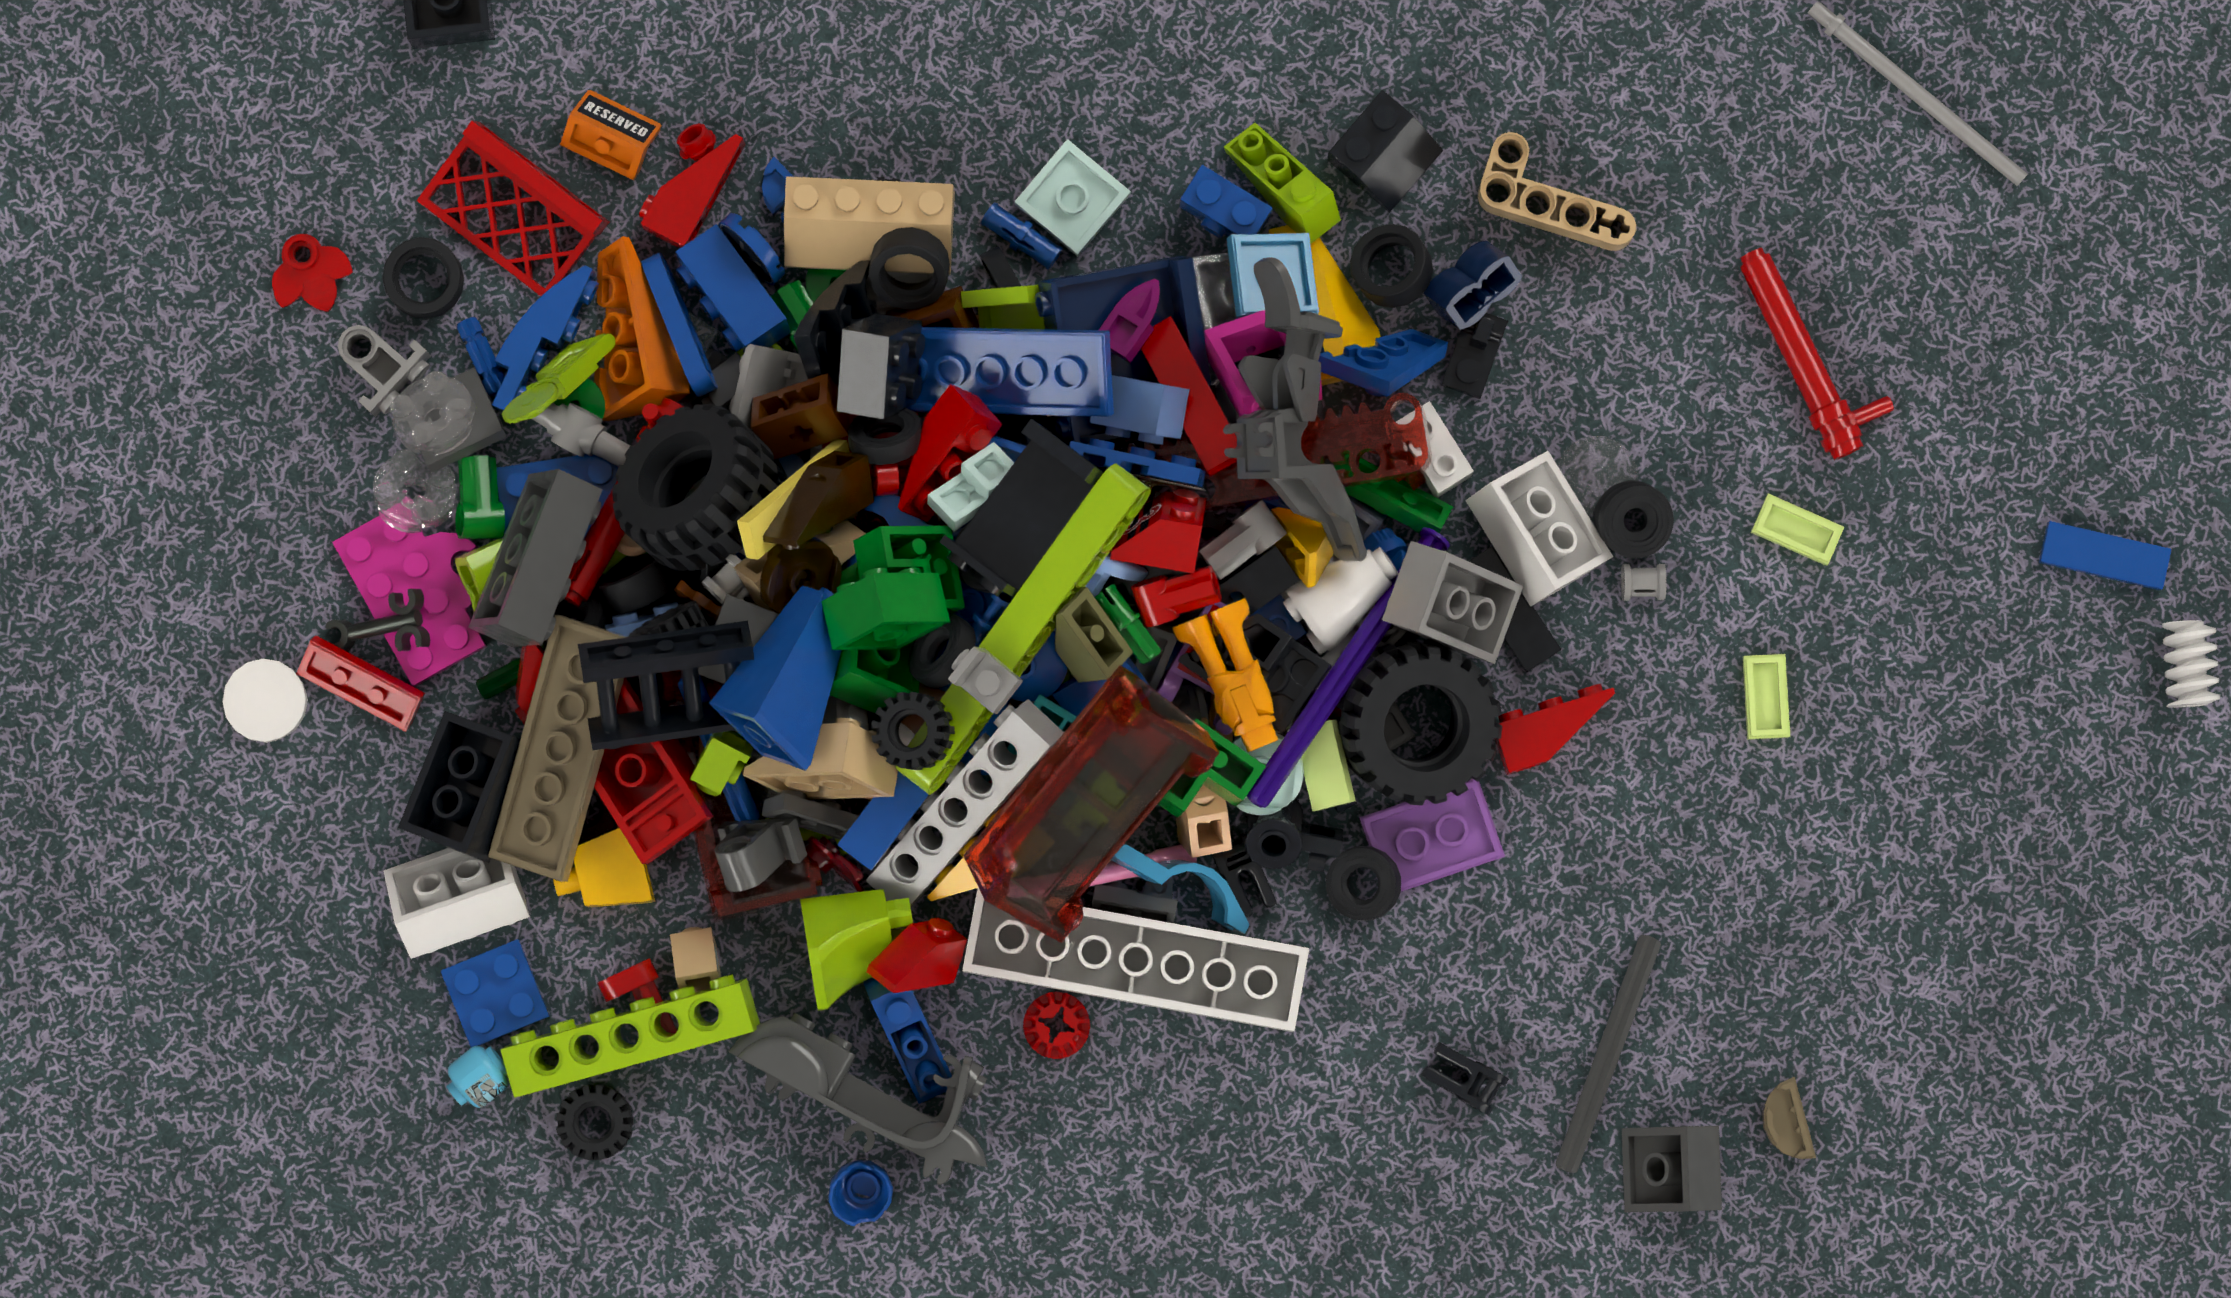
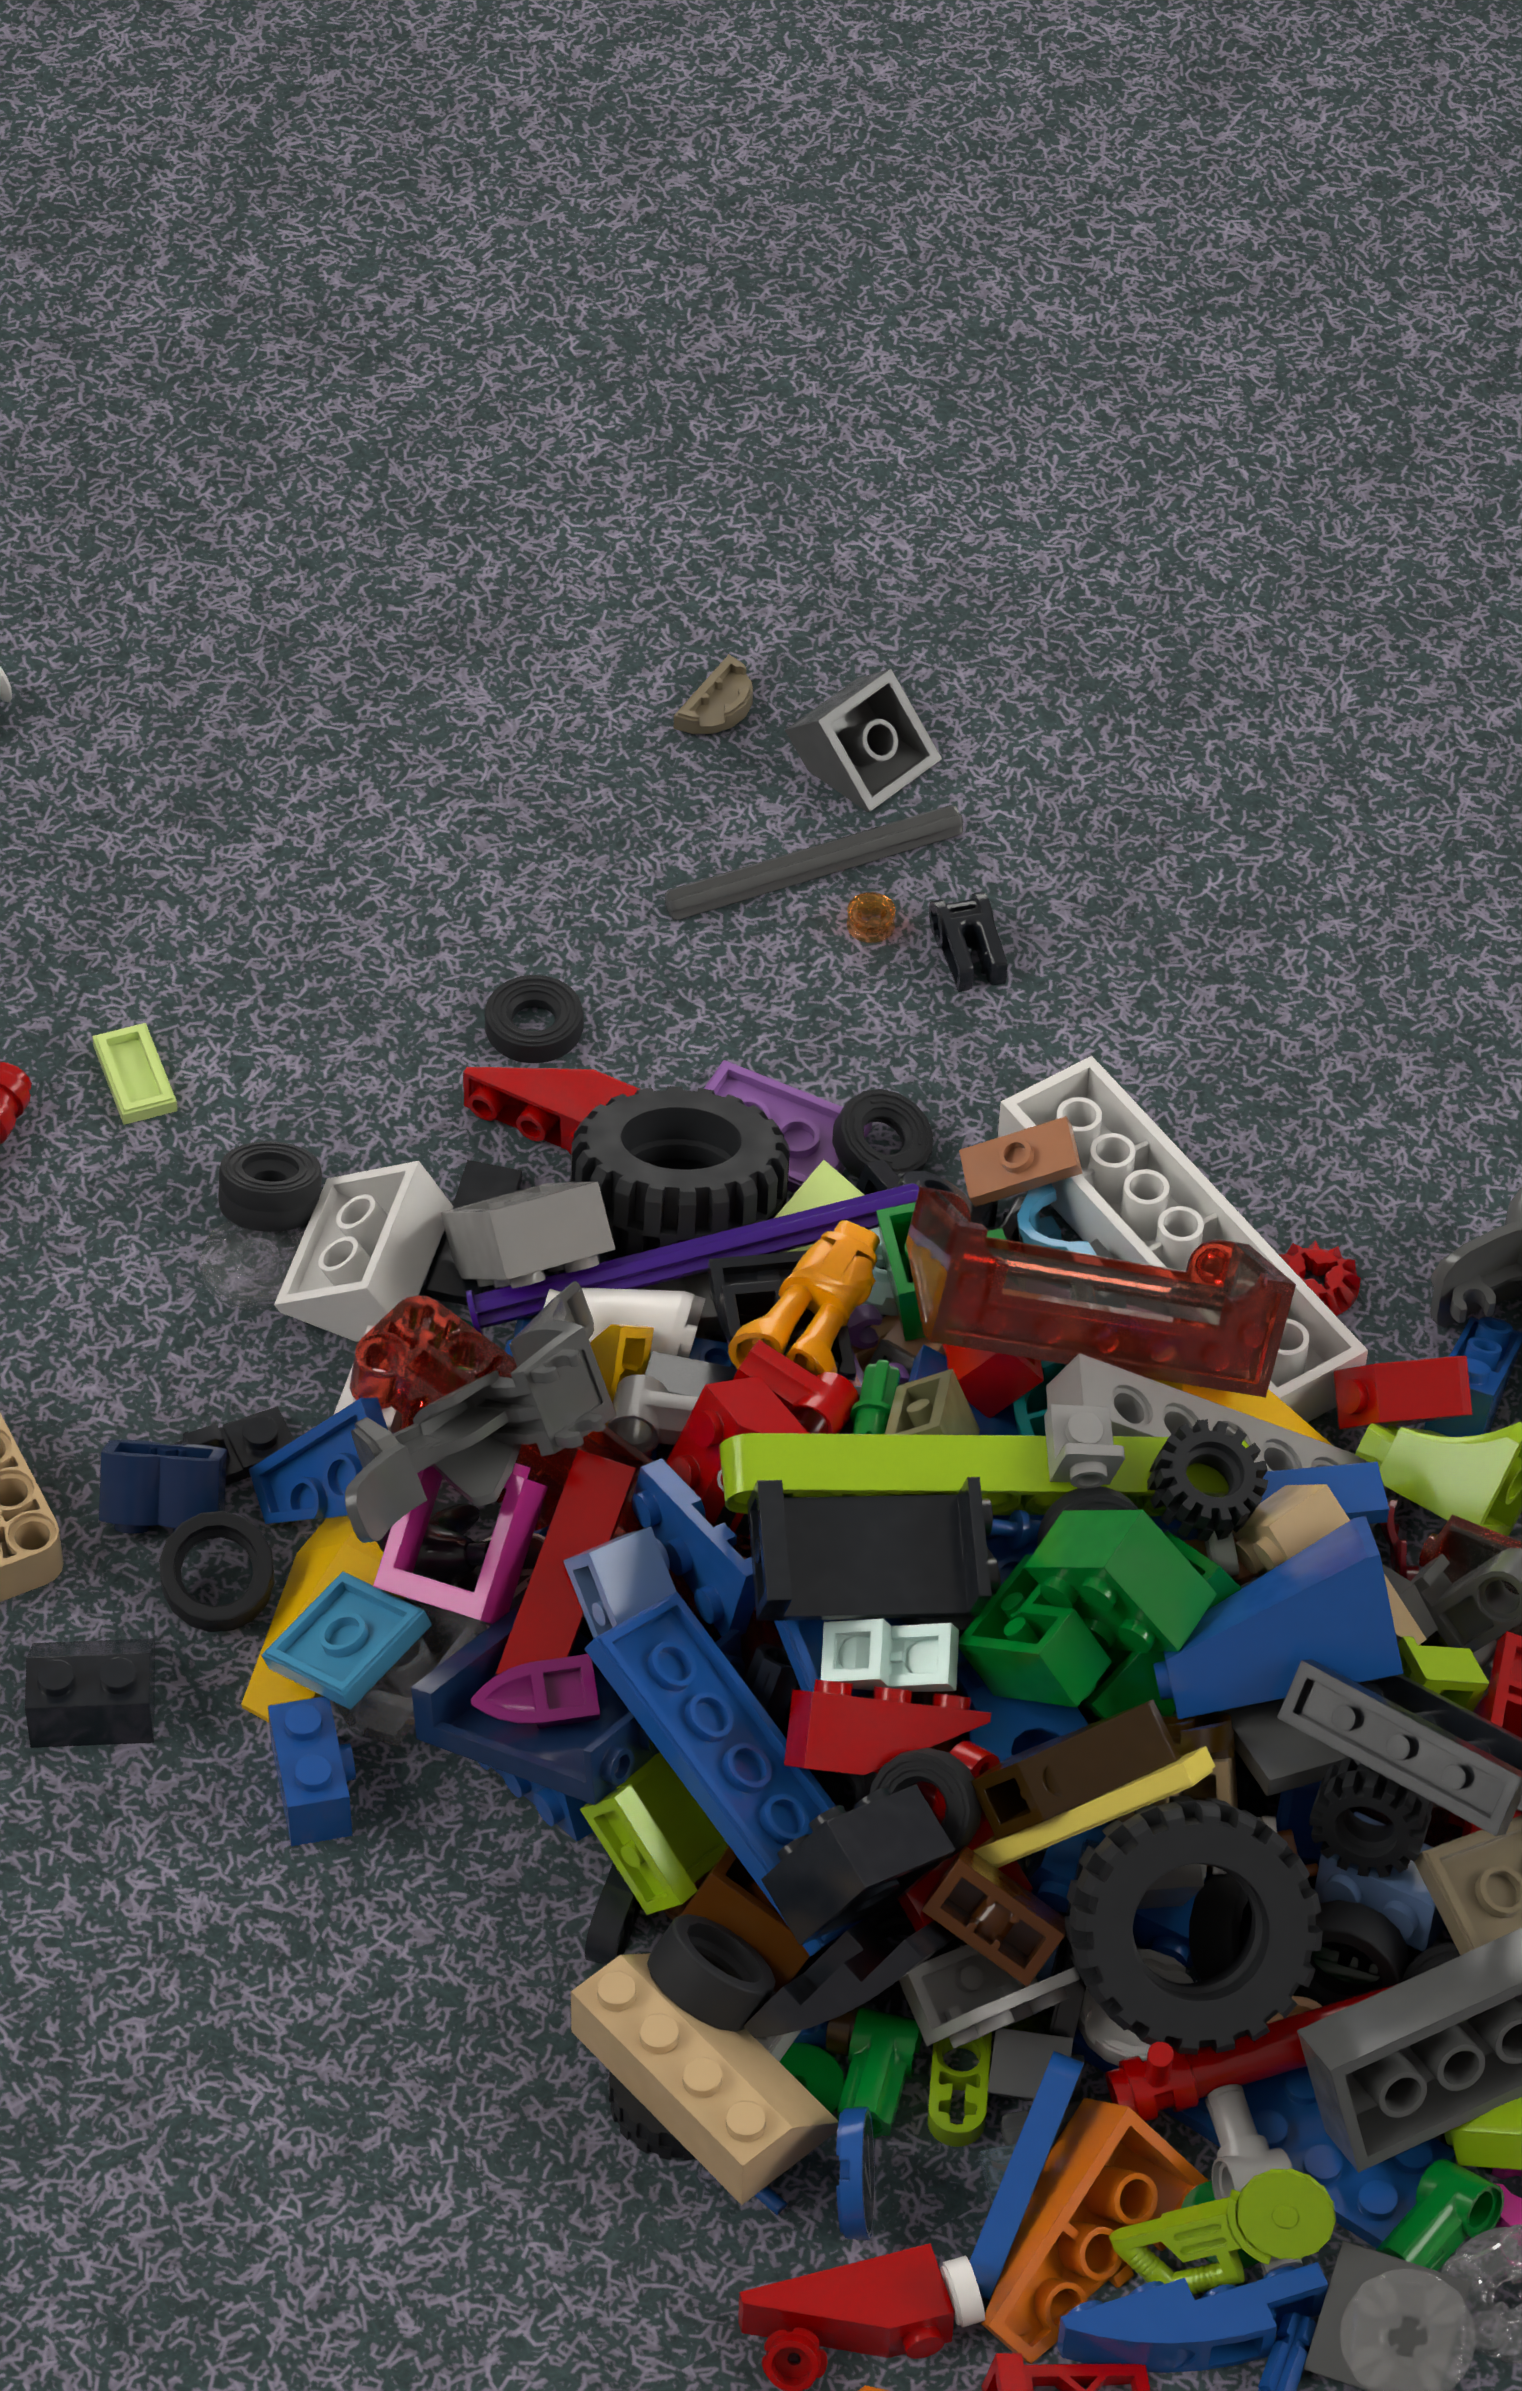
camera: 135 degrees left, 35 degrees down
(646, 236) = (963, 2291): none -> white tile
(730, 291) = (928, 2153): blue brick -> none
(774, 185) = (751, 2239): blue tile -> none
(1021, 235) = (547, 1947): blue pin -> none
(1072, 197) = (452, 1931): light aqua plate -> none
(1257, 916) = (1020, 1161): none -> nougat plate
(1284, 182) = (223, 1744): lime slope -> none
(1546, 1050) = (866, 906): none -> clear orange bush
(1643, 582) = (329, 1144): light grey bush -> none
(1659, 776) = (534, 1045): none -> black tyre
(1766, 696) = (332, 984): yellowish green tile -> none

